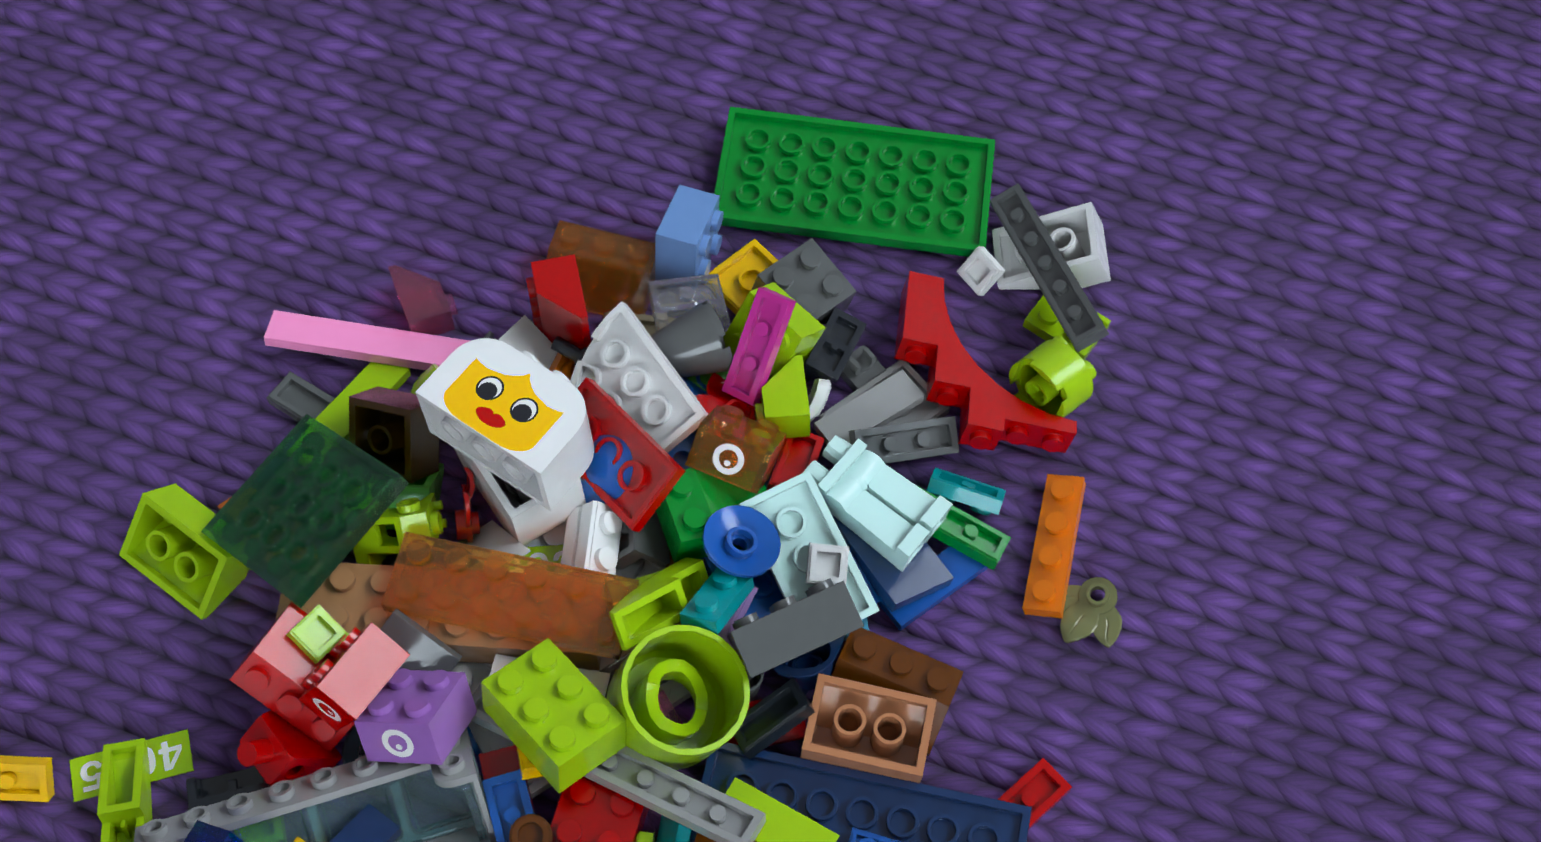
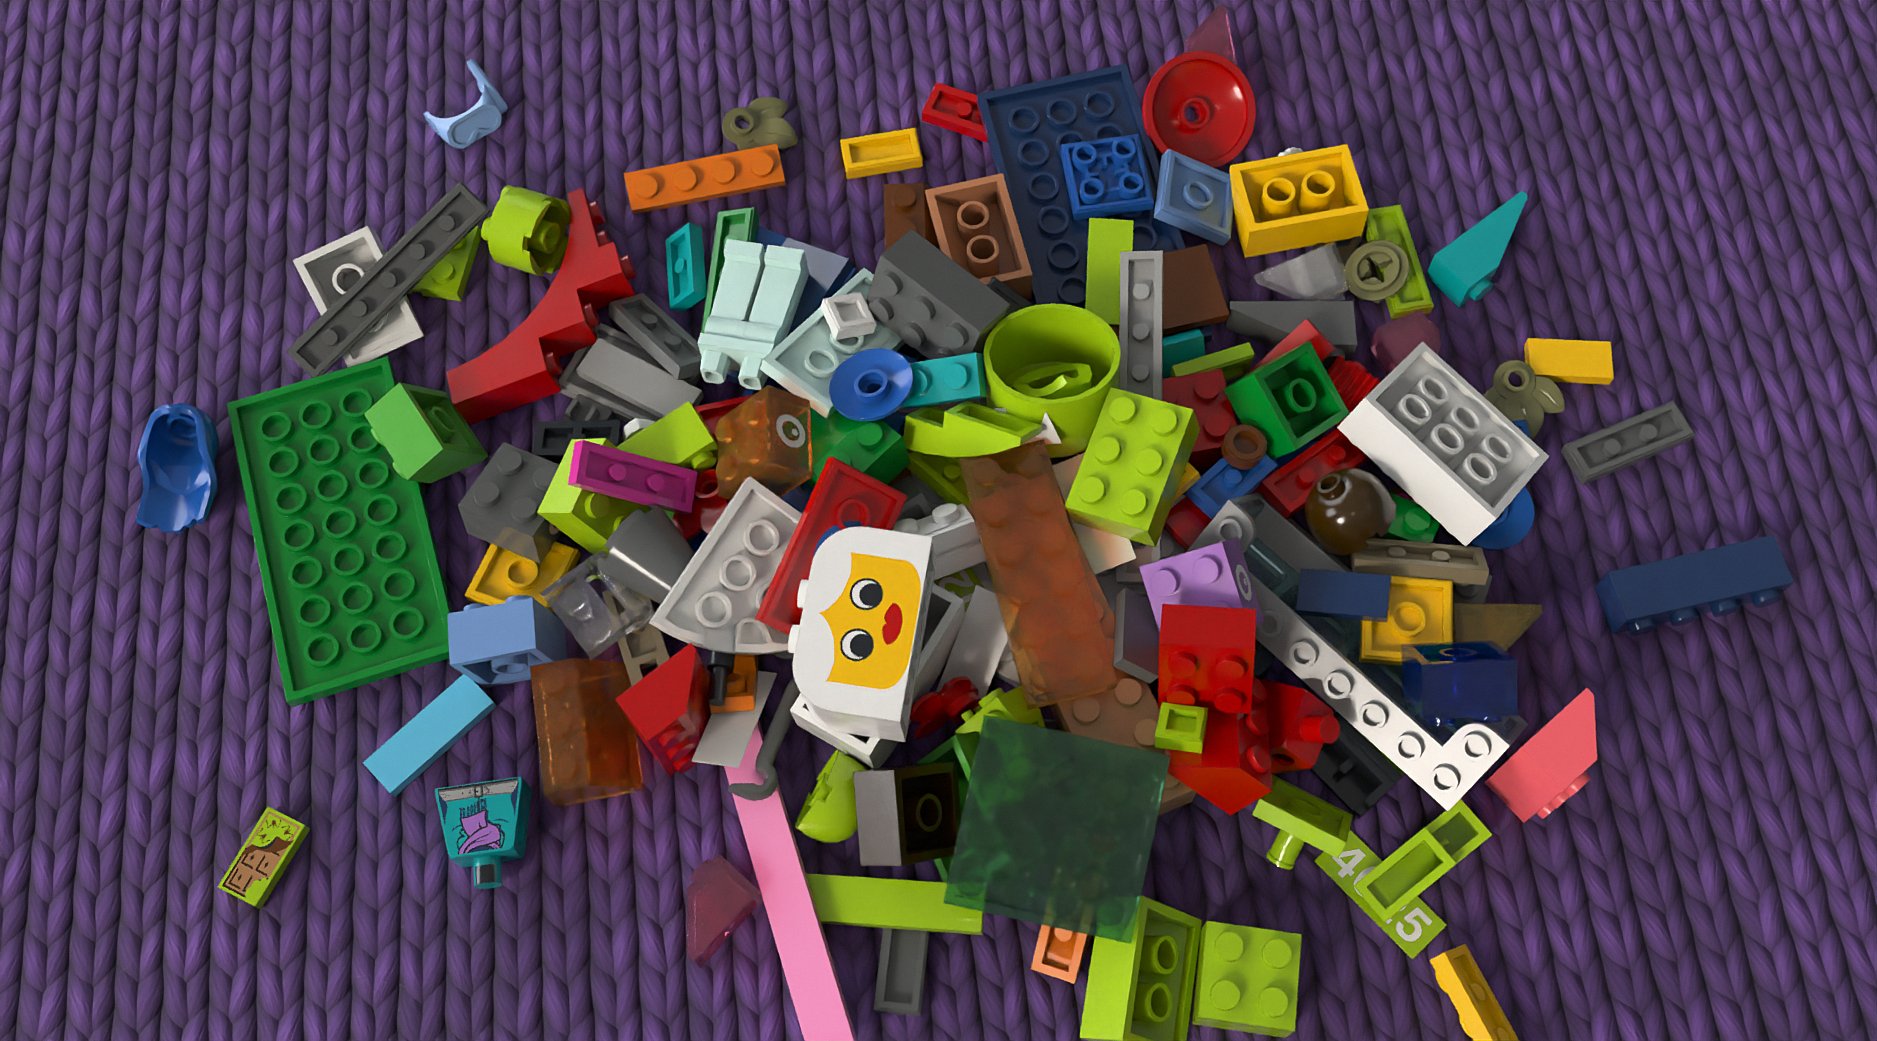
camera: 110 degrees left, 5 degrees up
(133, 618) = (1247, 979): none -> lime brick
(209, 720) = (1301, 820): none -> lime tile
(568, 188) = (485, 825): none -> torso
(630, 68) = (264, 857): none -> tile
(655, 176) = (429, 734): none -> medium azure tile
(892, 245) = (423, 433): none -> bright green slope
(960, 98) = (177, 468): none -> blue hair
(980, 271) = (413, 353): white tile -> none
(1018, 707) = (881, 153): none -> yellow tile
(1200, 400) = (476, 122): none -> light blue helmet

